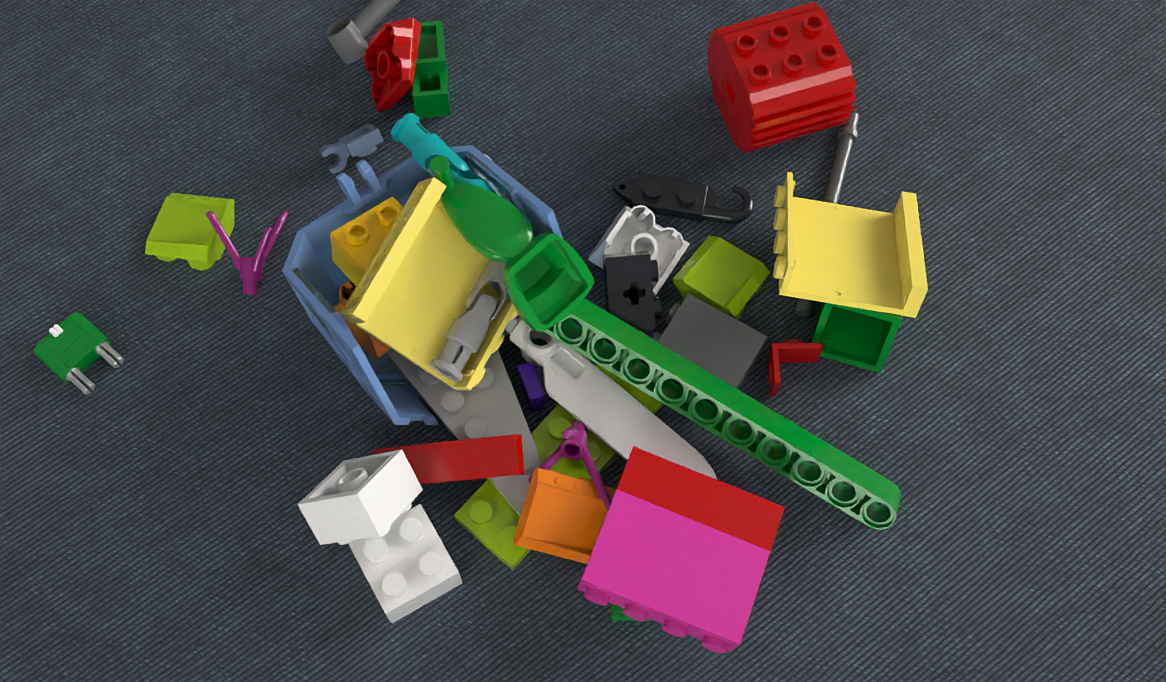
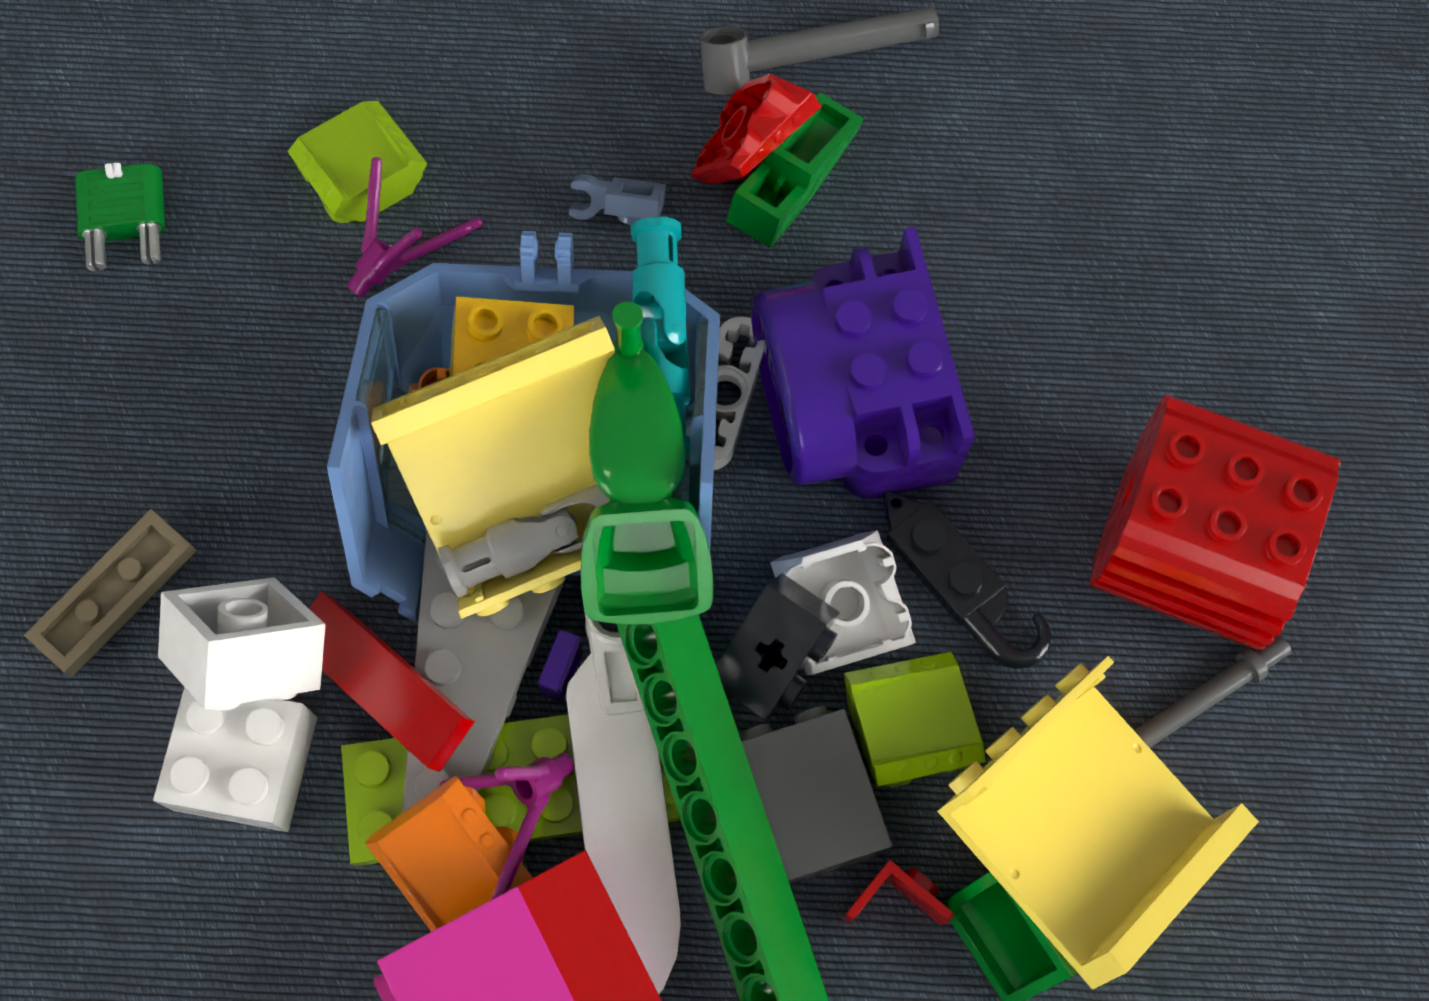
camera: 40 degrees right, 5 degrees up
(257, 542) = (110, 593): none -> dark tan plate
(559, 132) = (863, 375): none -> dark purple brick

